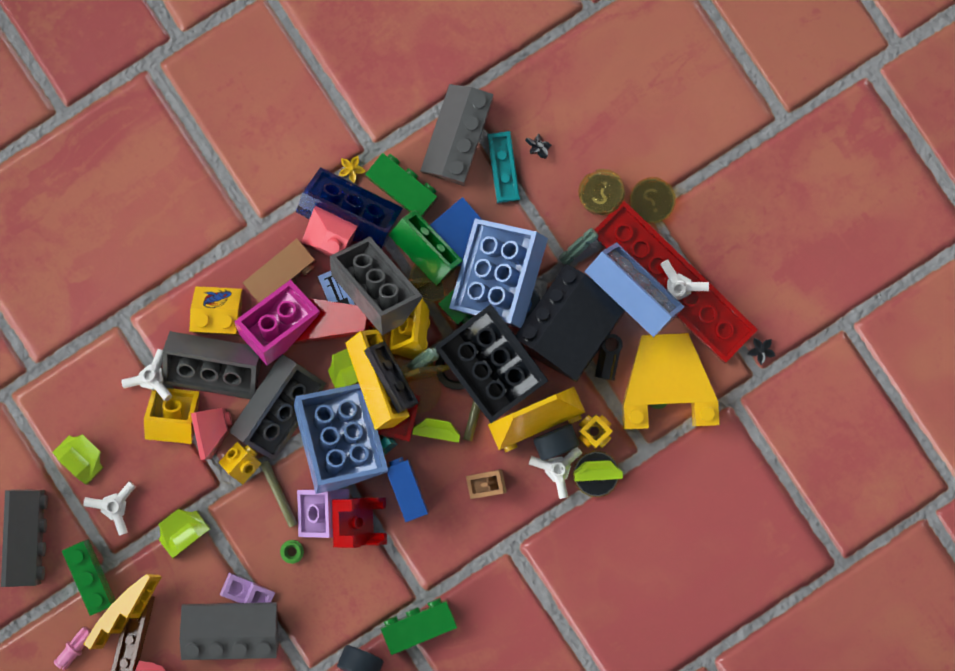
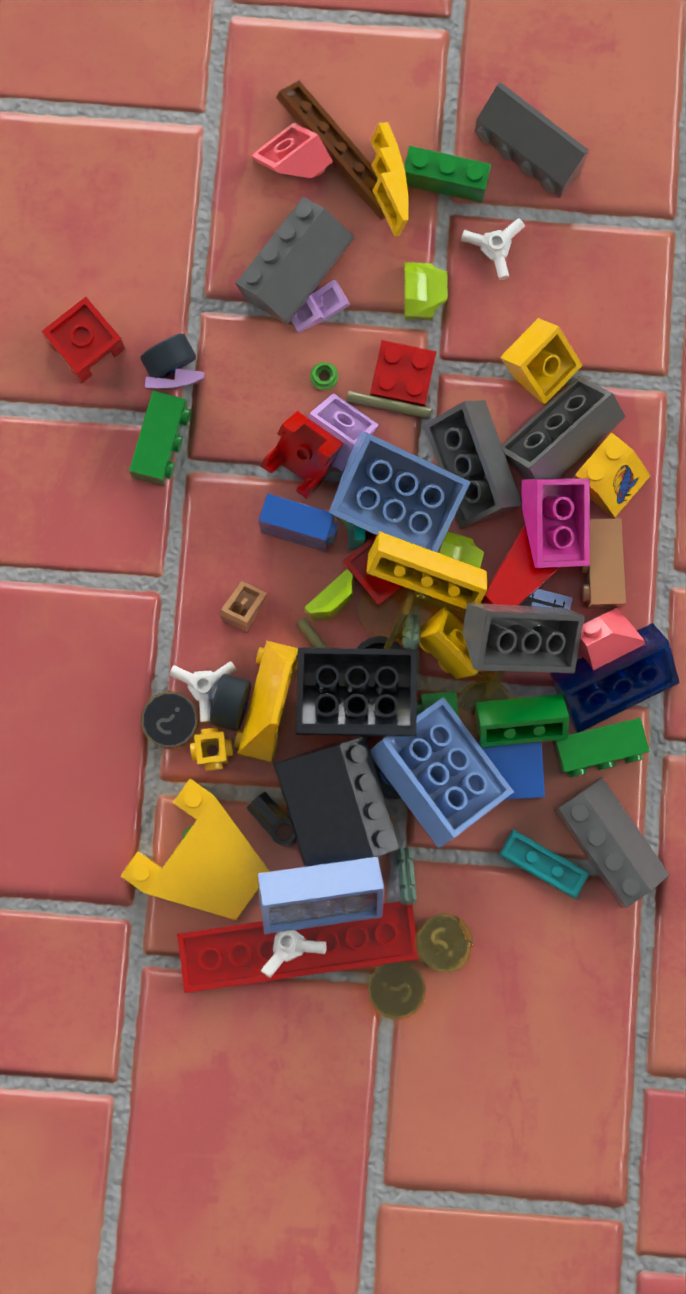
camera: 130 degrees right, 5 degrees down
(72, 649) = (390, 112): bright pink axle -> none
(79, 458) = (565, 246): lime slope -> none
(150, 378) = (593, 366): white piece -> none
(210, 430) = (498, 381): coral slope -> none
(240, 462) = (446, 388): yellow brick -> none
(250, 501) = (403, 373): none -> red plate
(351, 168) = (655, 712): yellow plant -> none
(366, 642) = (182, 379): none -> lavender slope
(391, 377) = (419, 584): black tile -> none
(538, 146) = (538, 915): black plant -> none
(597, 471) = (170, 720): lime slope -> none
(761, 350) = (161, 981): black plant -> none

